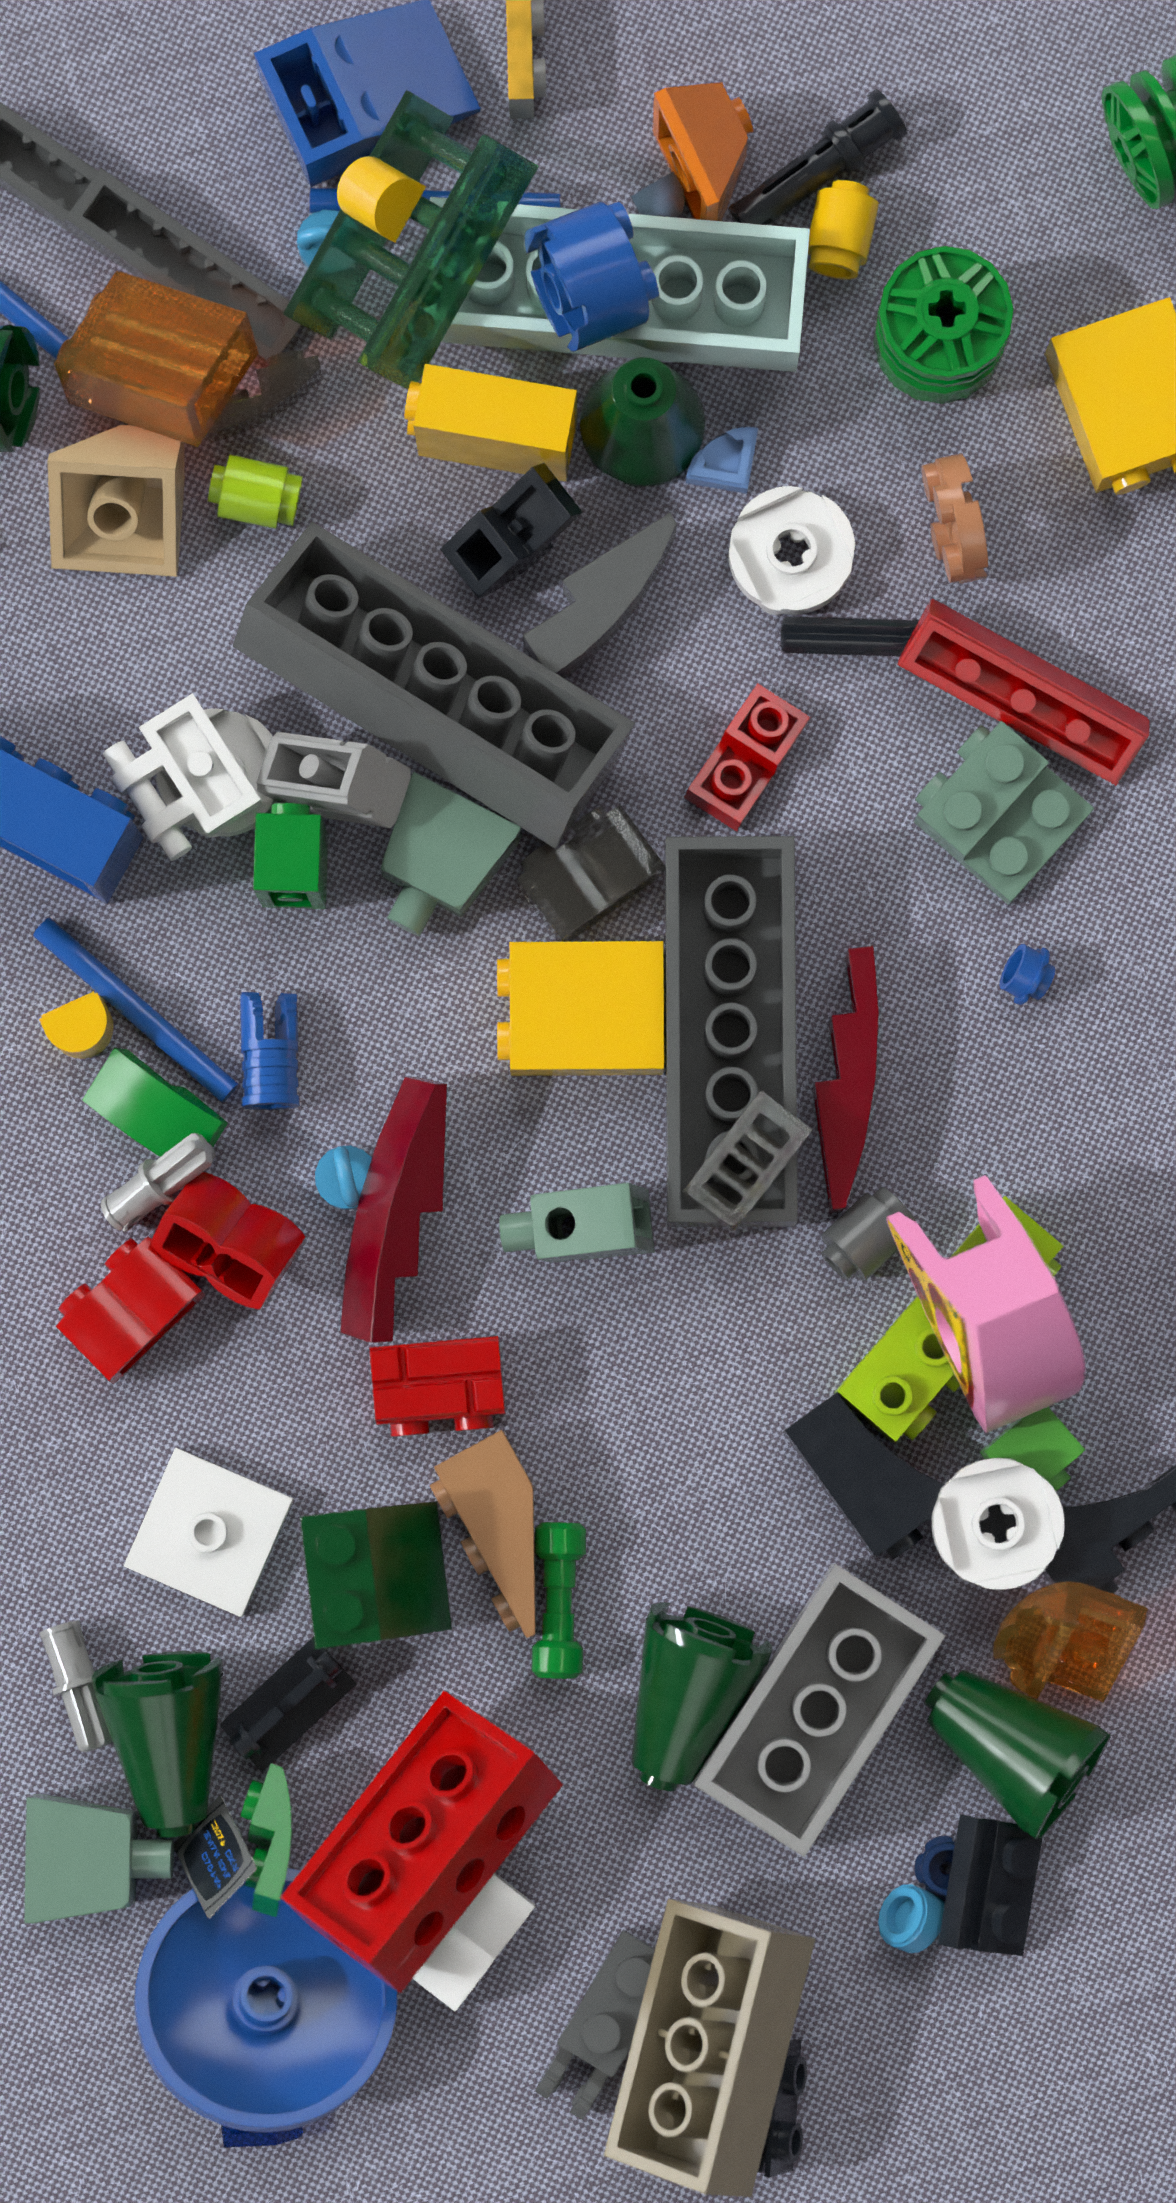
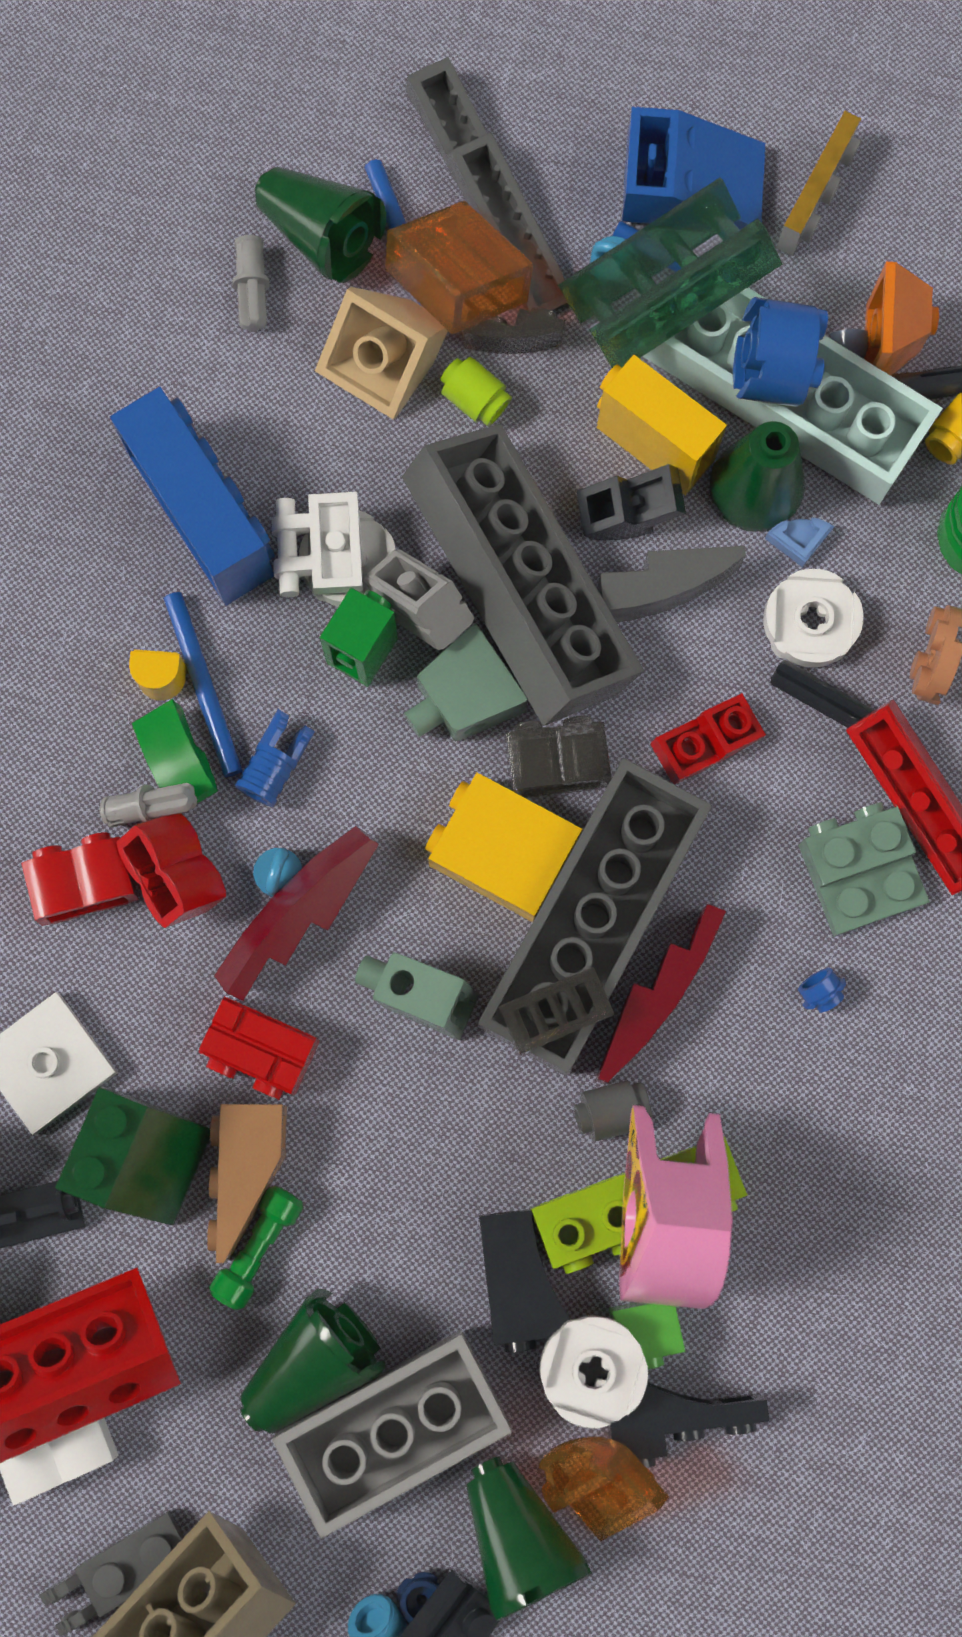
camera: 25 degrees right, 5 degrees down
(378, 196) = (663, 234): yellow brick -> none

